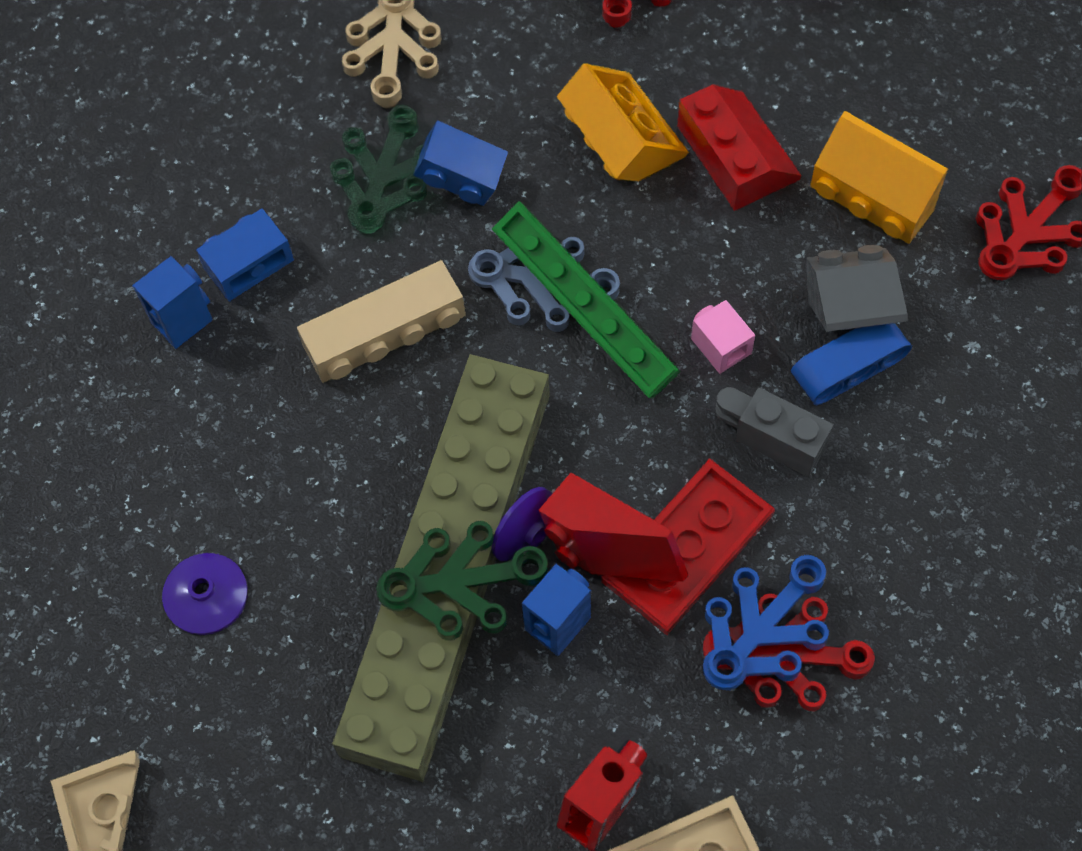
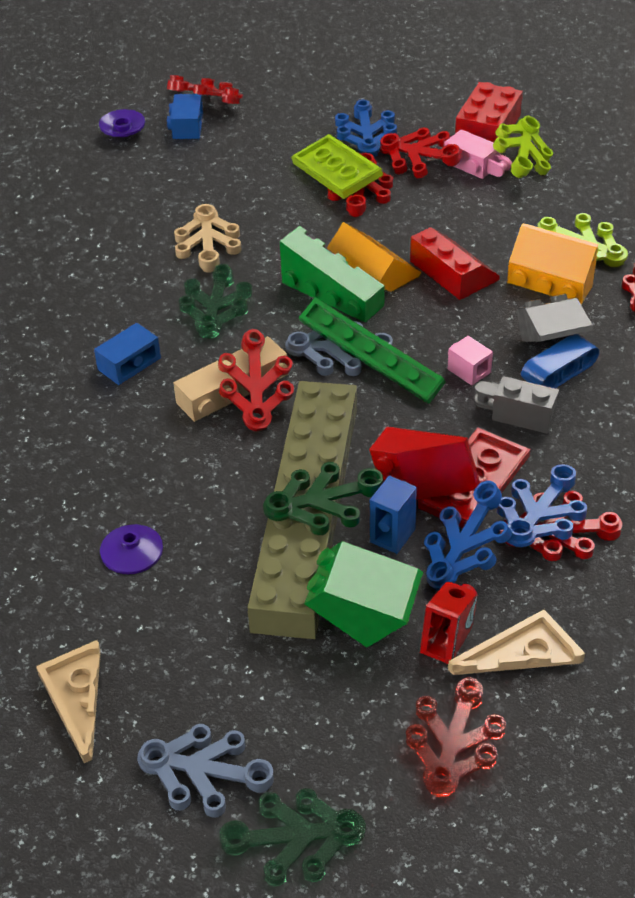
camera: 10 degrees left, 20 degrees down
(174, 301) = (82, 378): blue brick -> none
(410, 344) = (254, 383): none -> red plant
(460, 163) = (269, 287): blue brick -> none
(489, 744) = (362, 592): none -> slope
(521, 525) = (356, 460): dark purple dish -> none
(550, 155) = (328, 276): none -> green wedge
(645, 664) = (448, 568): none -> blue plant
(942, 128) = (610, 253): none -> lime plant

